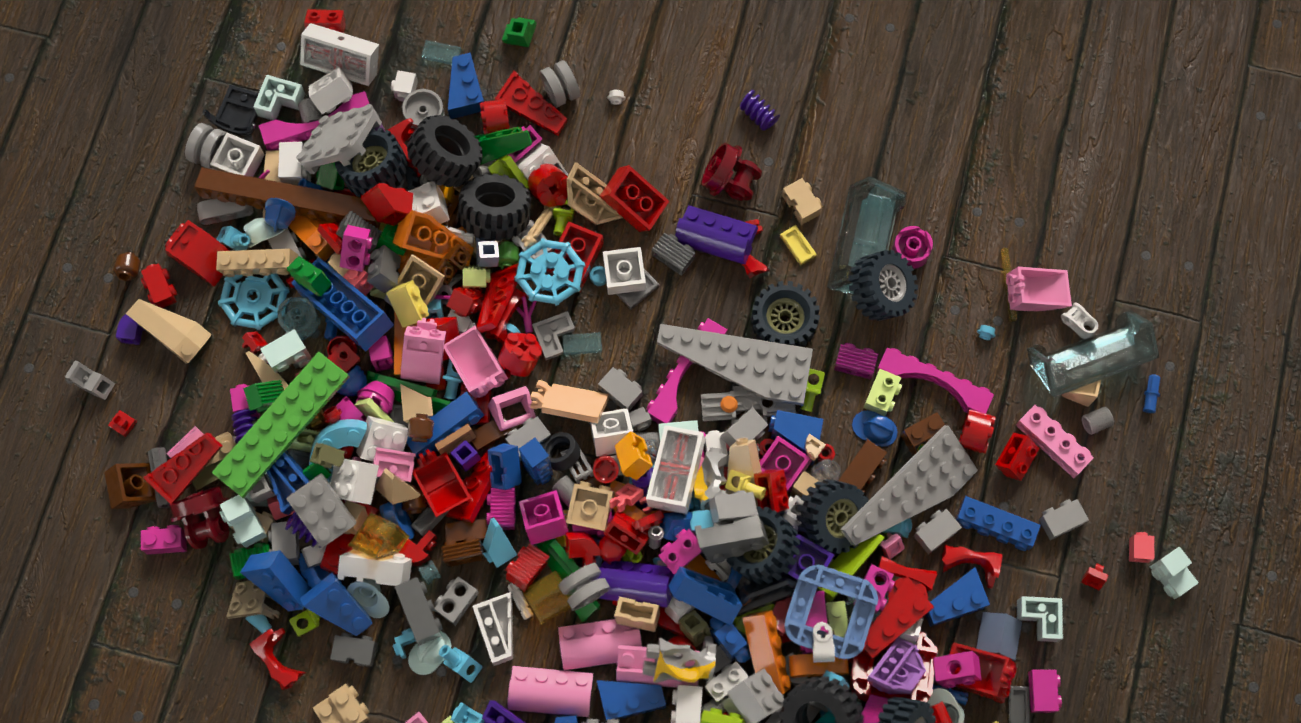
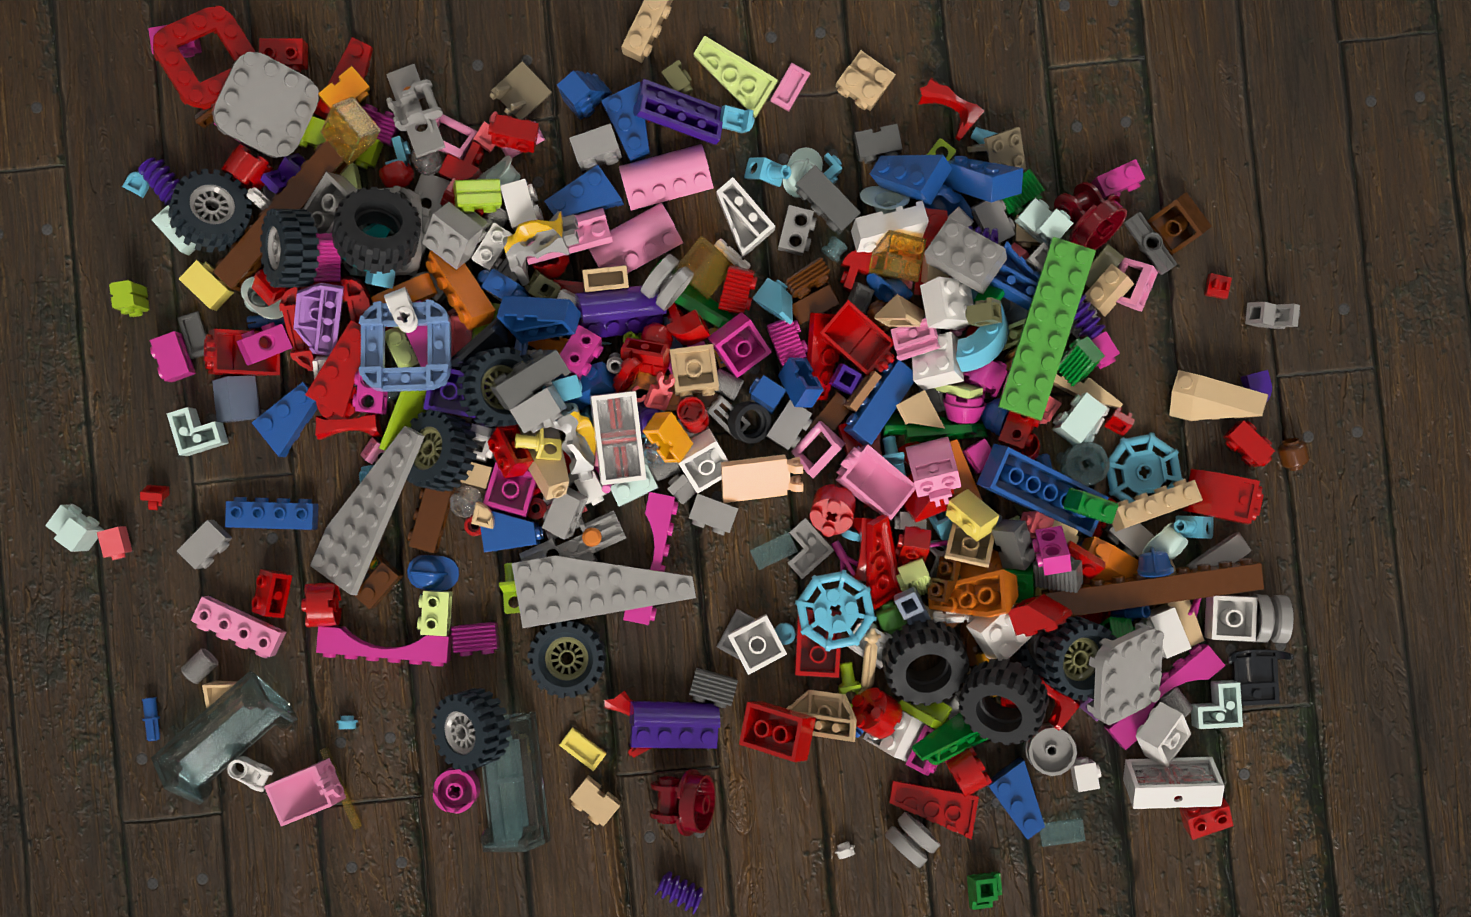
camera: 160 degrees right, 15 degrees up
(181, 470) = (1131, 251): red wing -> none
(332, 414) = (1000, 364): red plate -> none
(420, 428) = (902, 385): reddish brown head -> none
(936, 531) = (331, 483): light grey brick -> none
(989, 561) = (266, 471): red animal -> none

